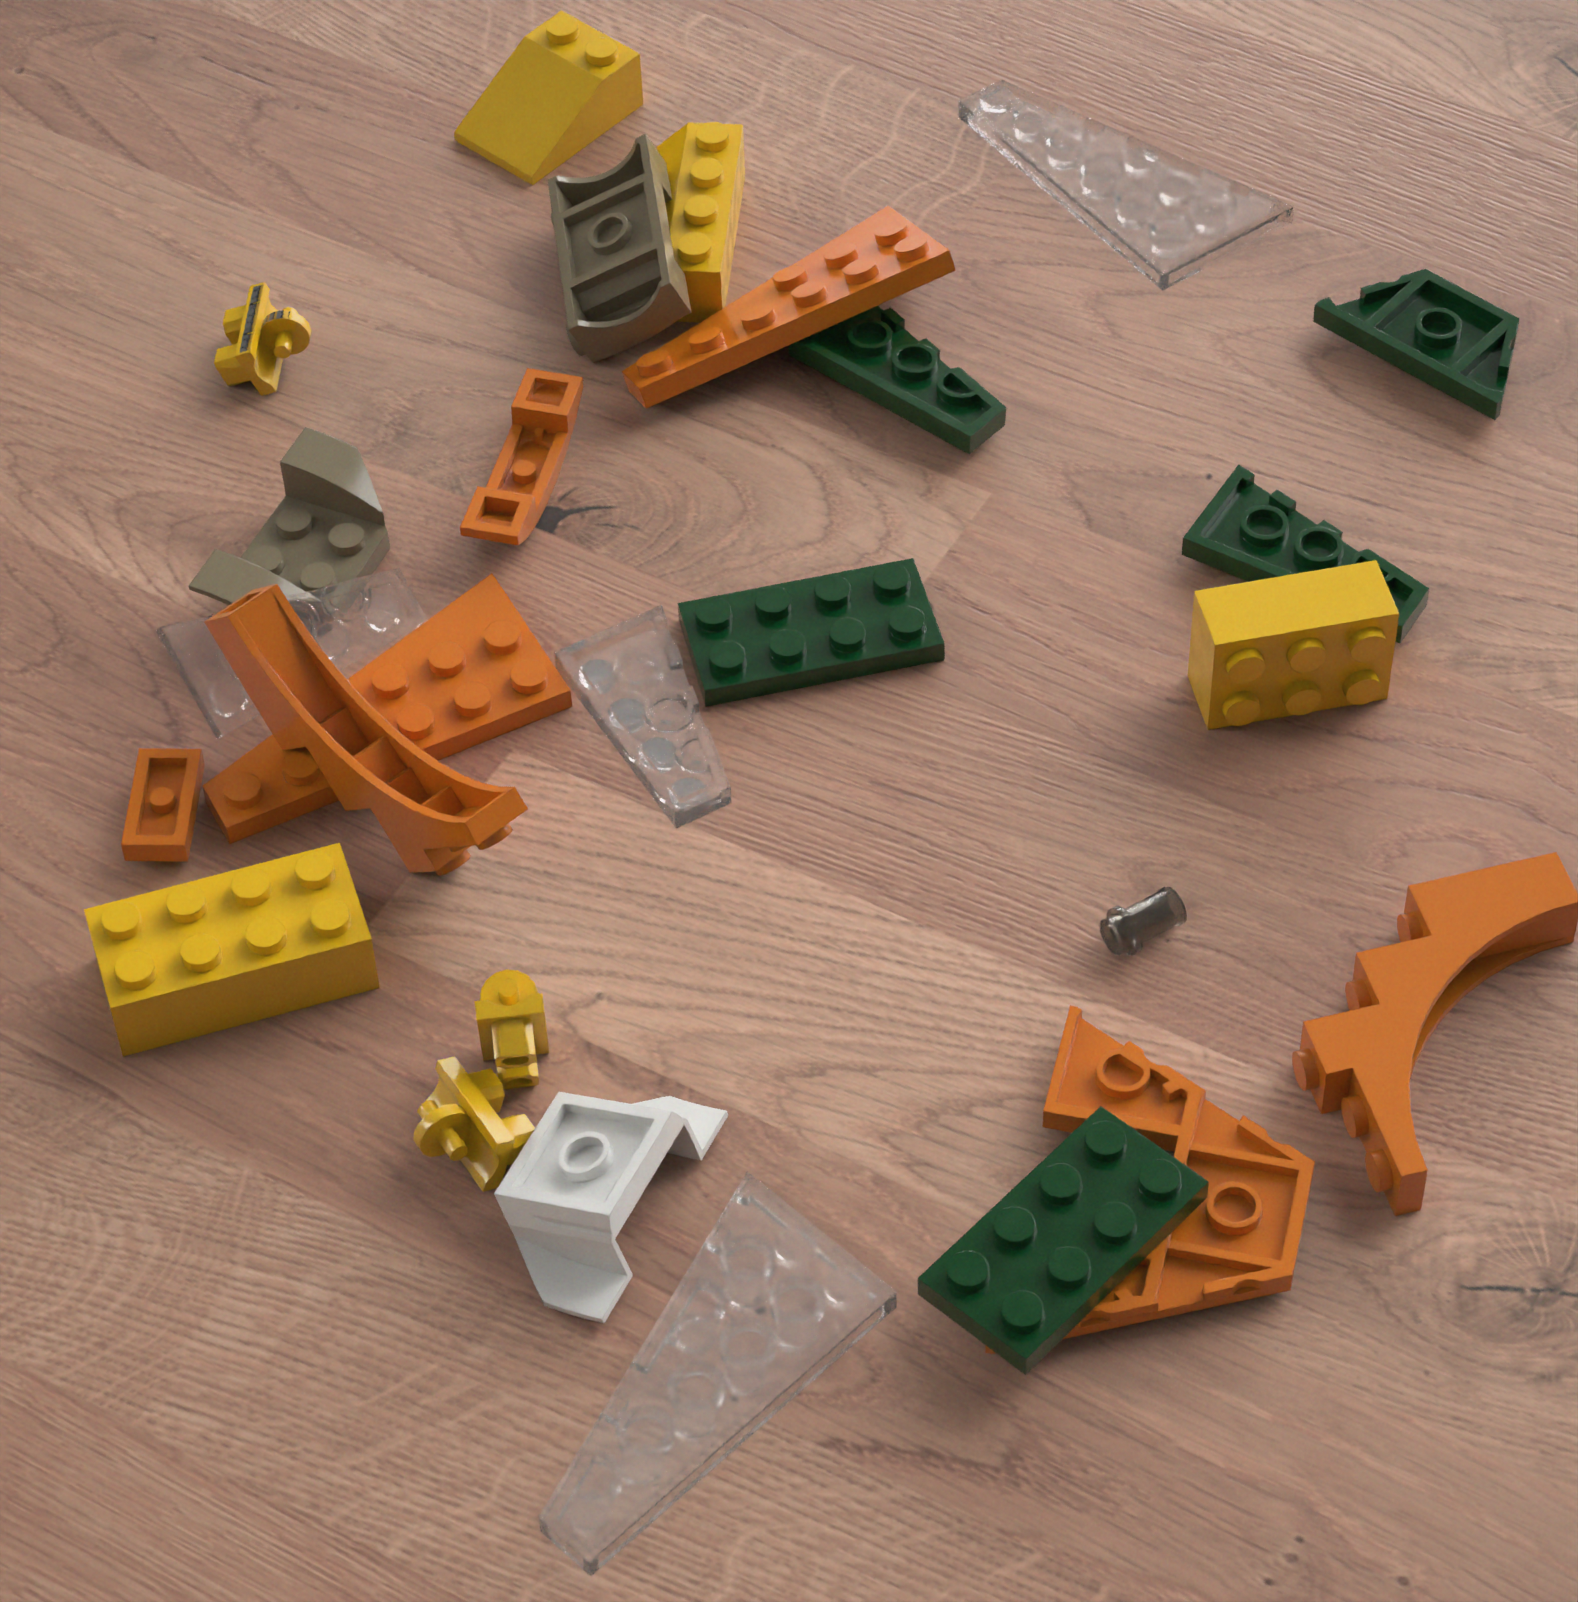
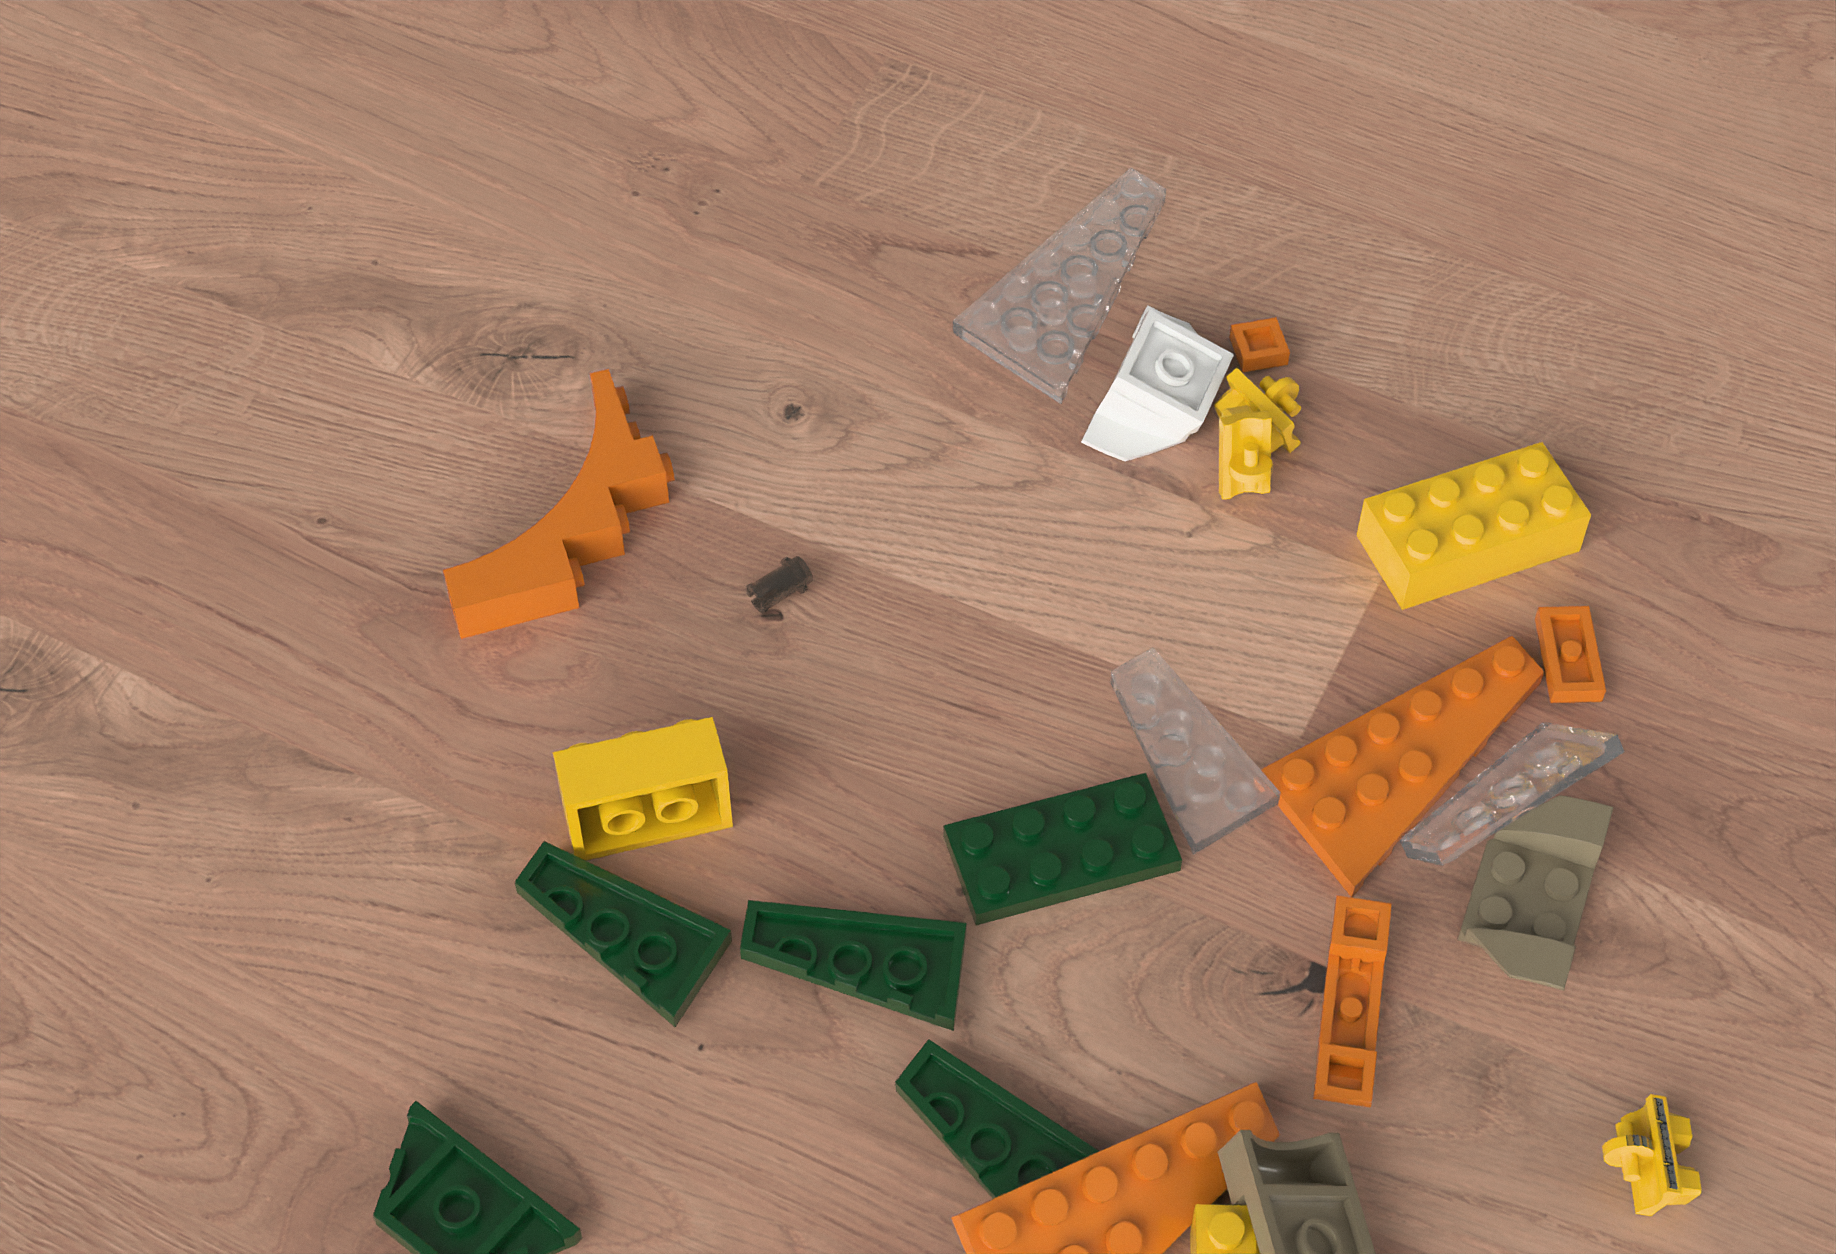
camera: 175 degrees right, 5 degrees up
(368, 763) = (1354, 615): orange arch -> none
(450, 1235) = (1259, 344): none -> orange plate
(1016, 525) = (871, 956): none -> dark green wing
(1062, 1239) = (840, 335): dark green plate -> none
(1247, 1228) = (729, 376): orange wing -> none

